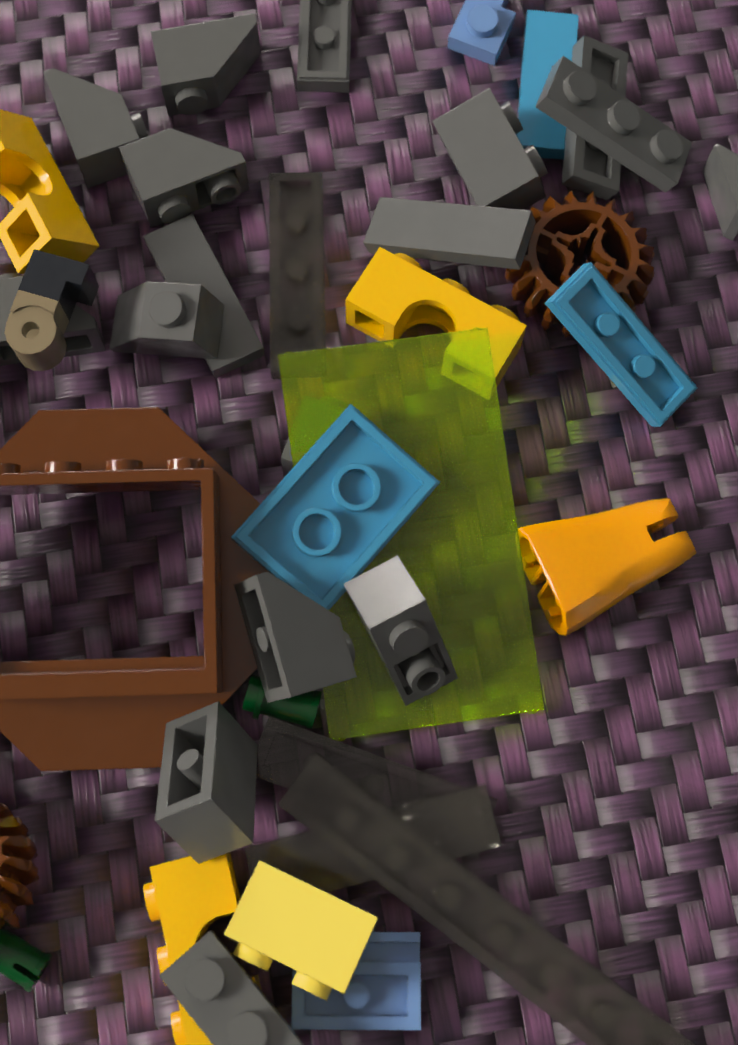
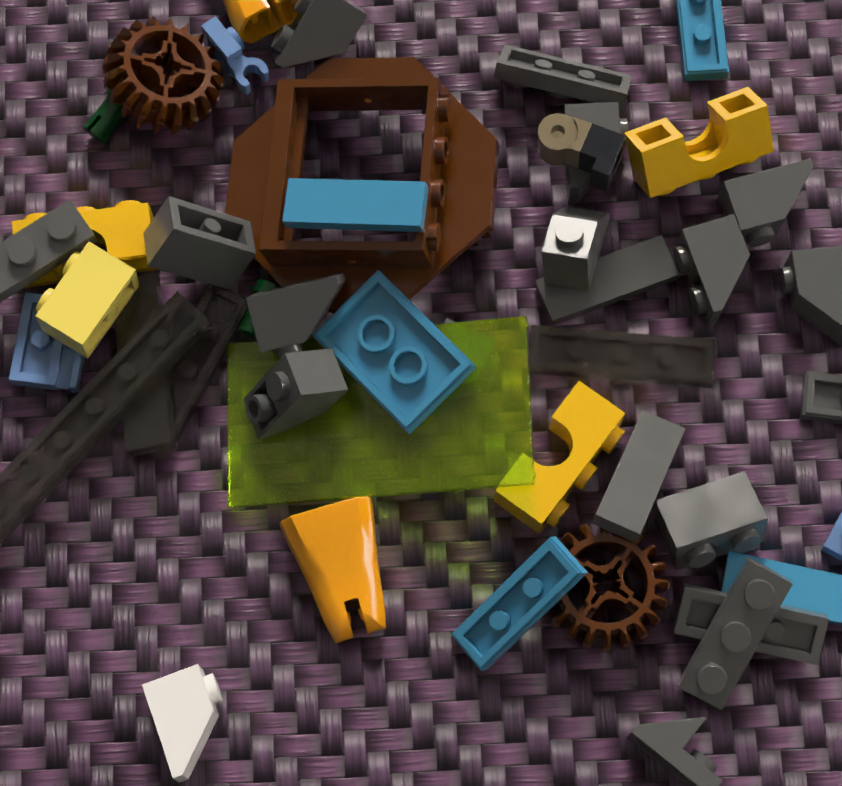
camera: 100 degrees right, 0 degrees up
(153, 561) = (355, 204): none -> dark azure tile

